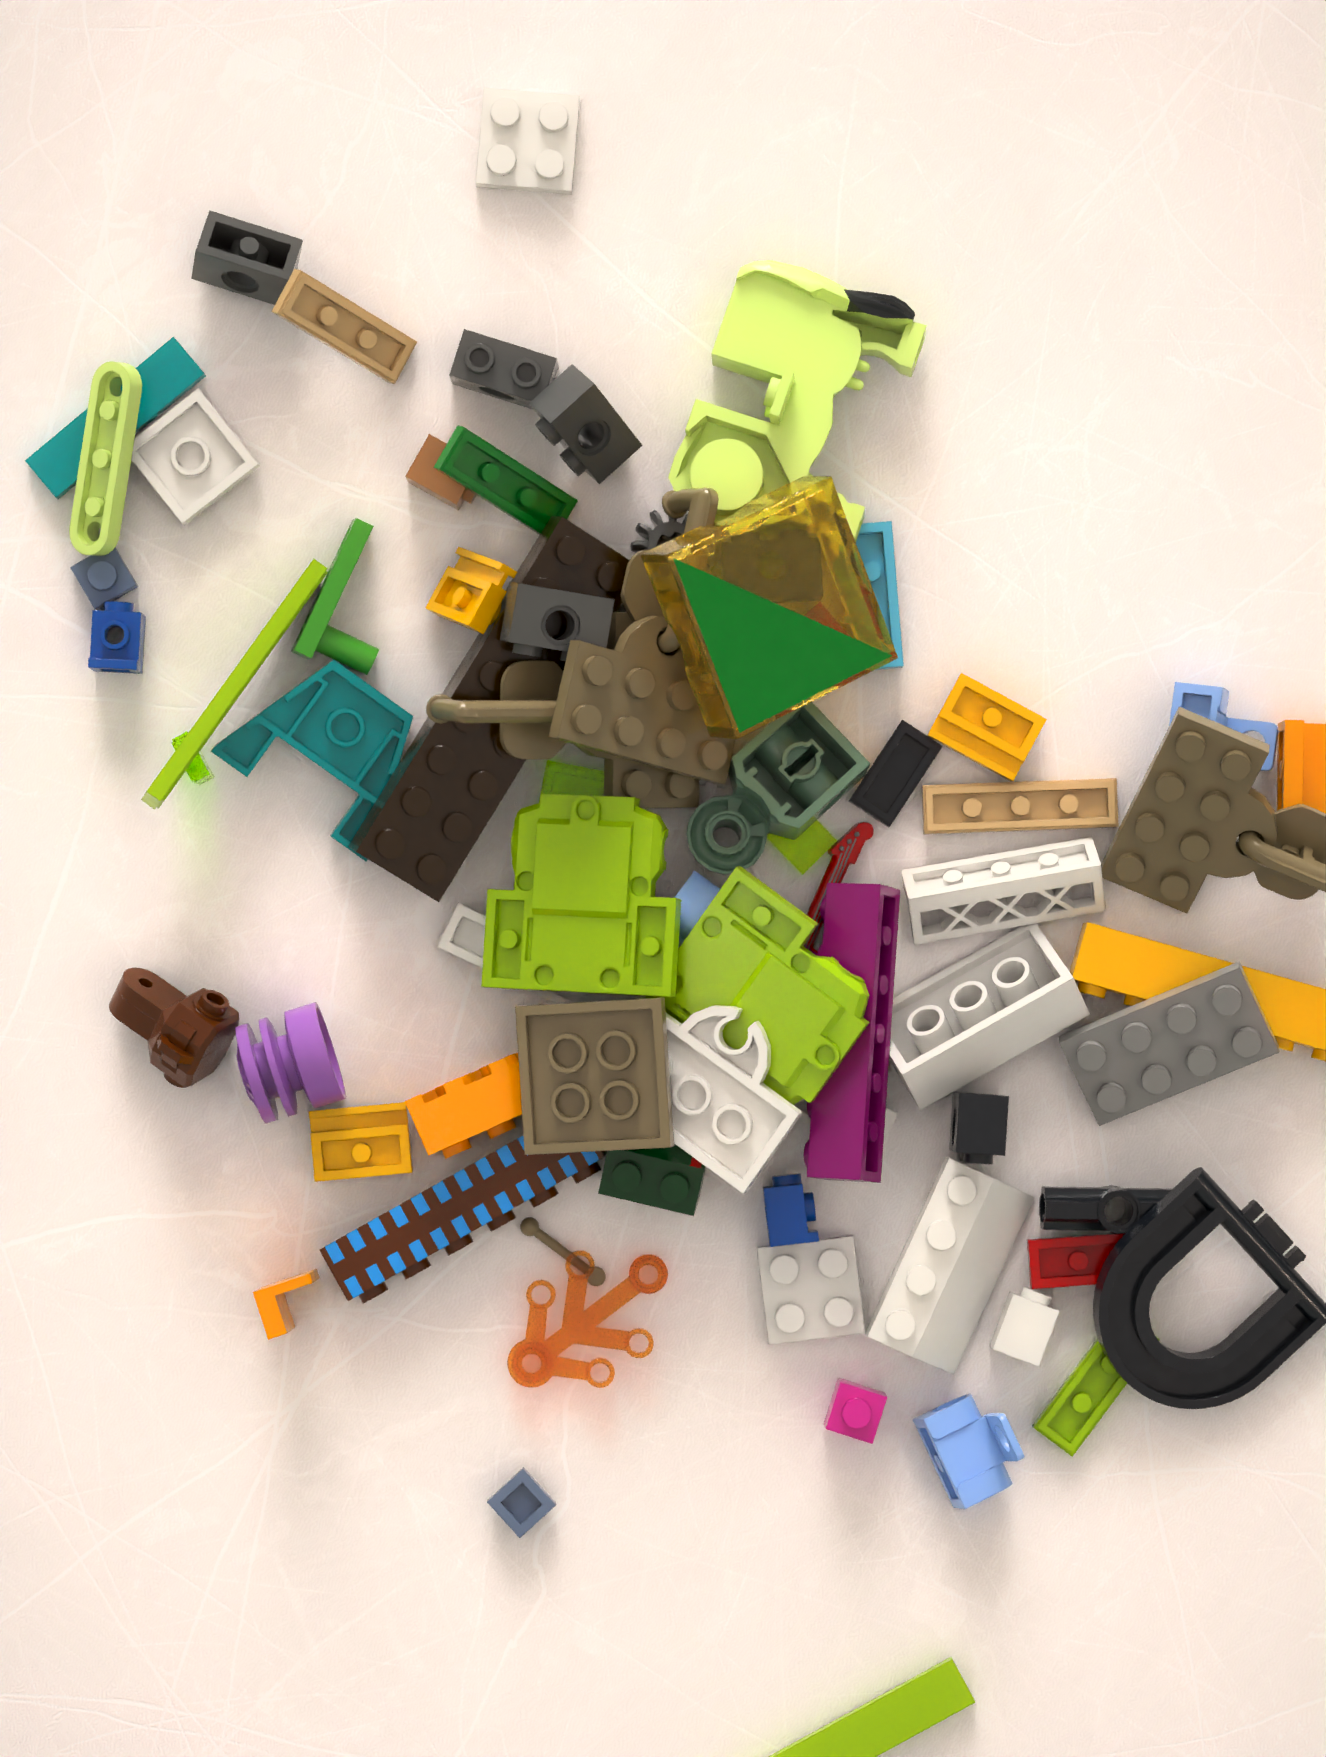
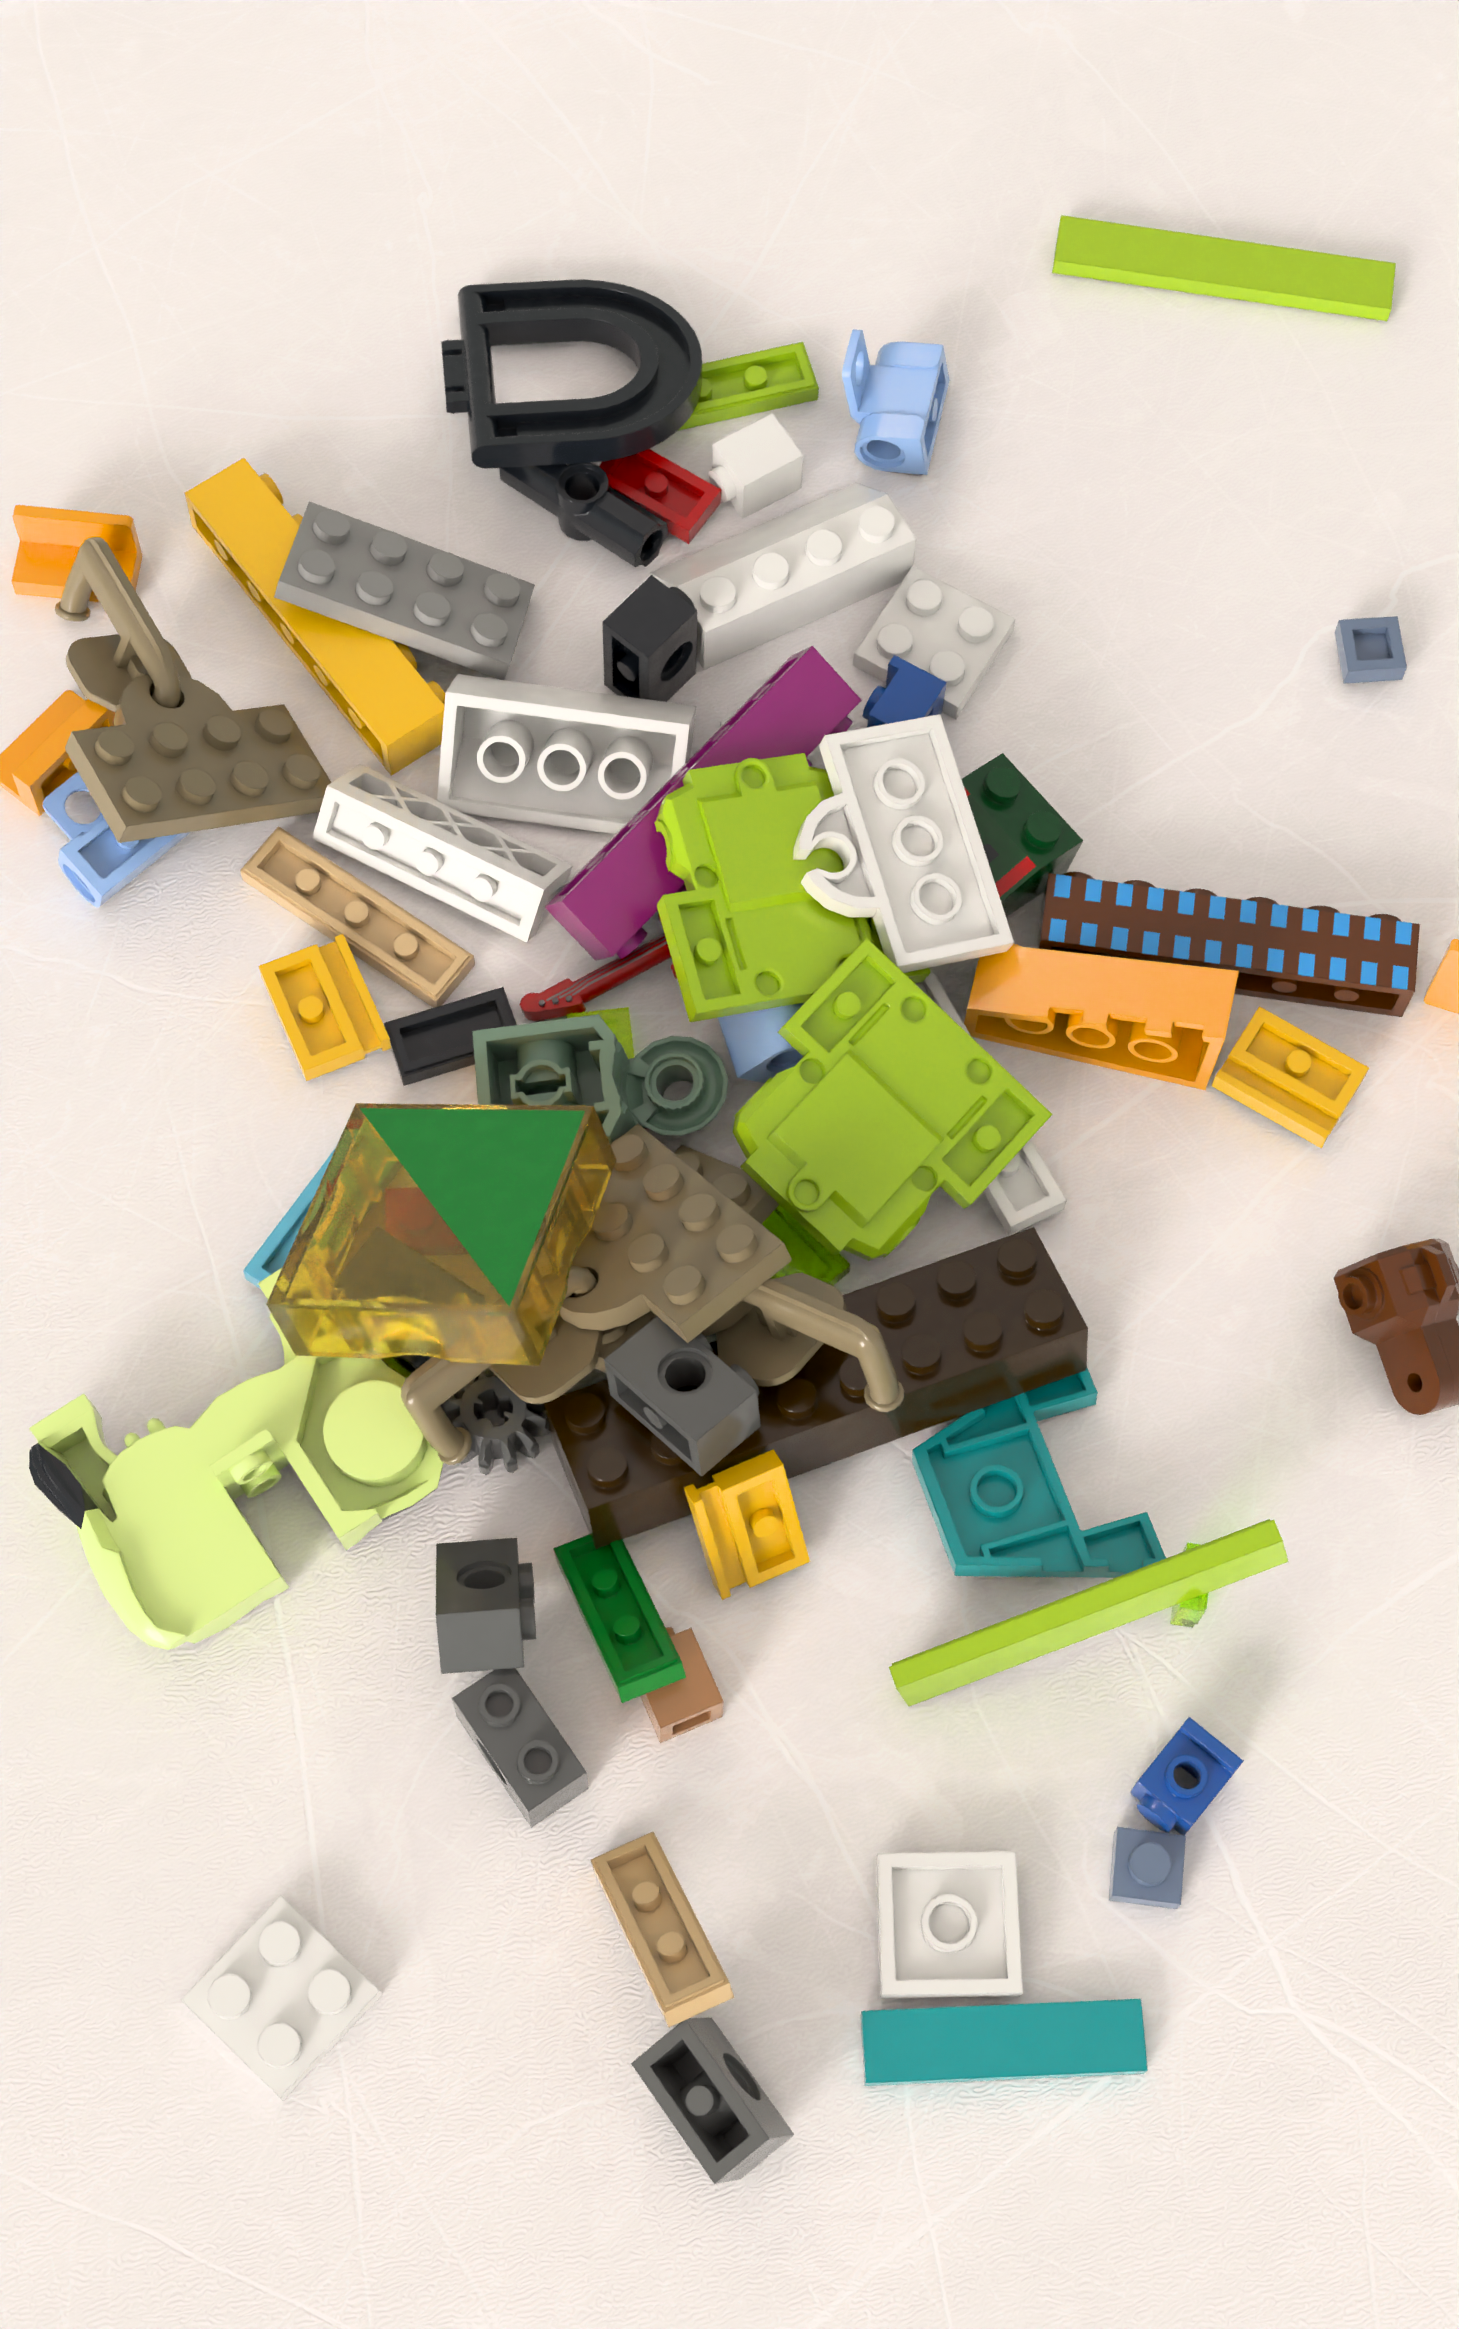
camera: 145 degrees left, 20 degrees down
(105, 458) = (1051, 1989): yellowish green plate -> none
(289, 1063) = (1315, 1186): medium lavender wheel -> none
(315, 632) = (866, 1666): bright green piece -> none
(530, 1227) = (1139, 801): dark tan hinge -> none
(581, 1324) = (1185, 758): clear orange plant -> none
(594, 1076) = (1004, 923): dark tan plate -> none
(855, 1410) = (978, 504): dark pink brick -> none

